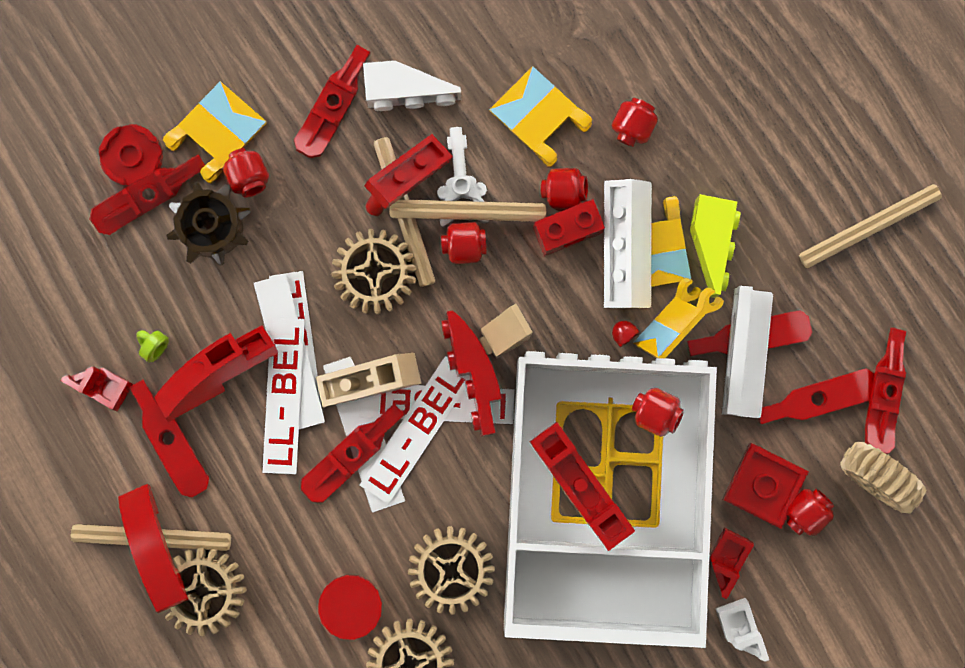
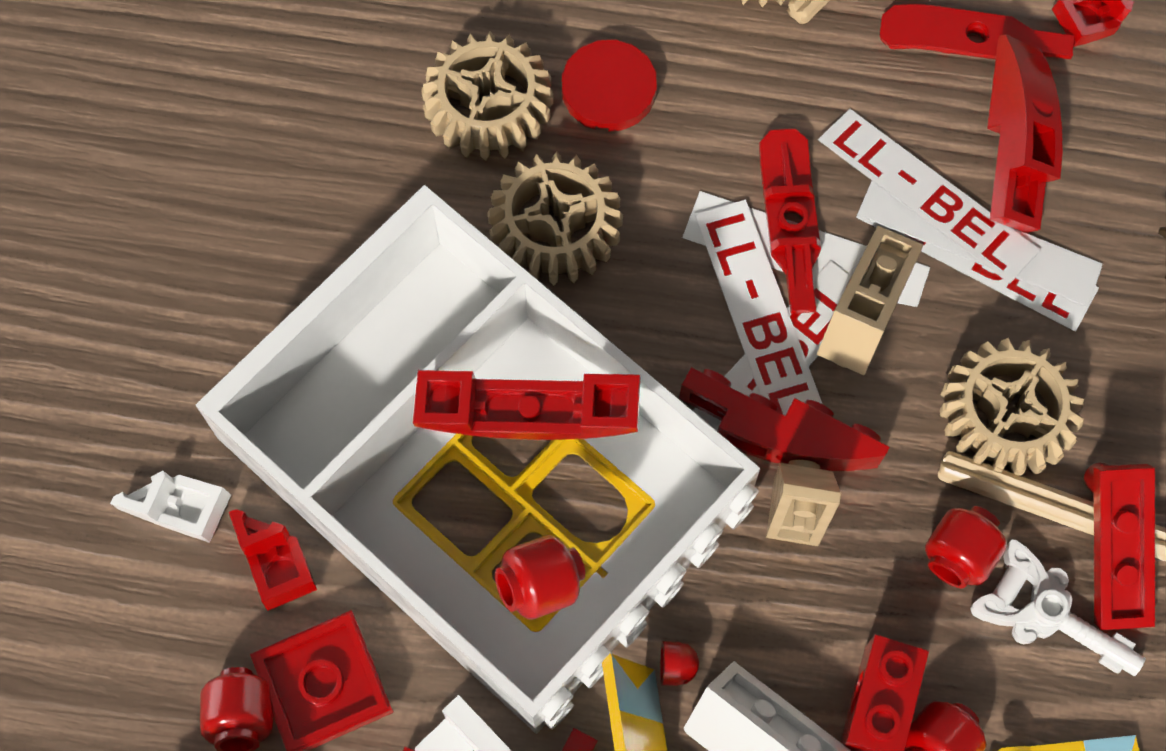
camera: 135 degrees right, 15 degrees down
(152, 344) = (1108, 91): lime tile -> none
(468, 210) = (1008, 586): tan axle -> none

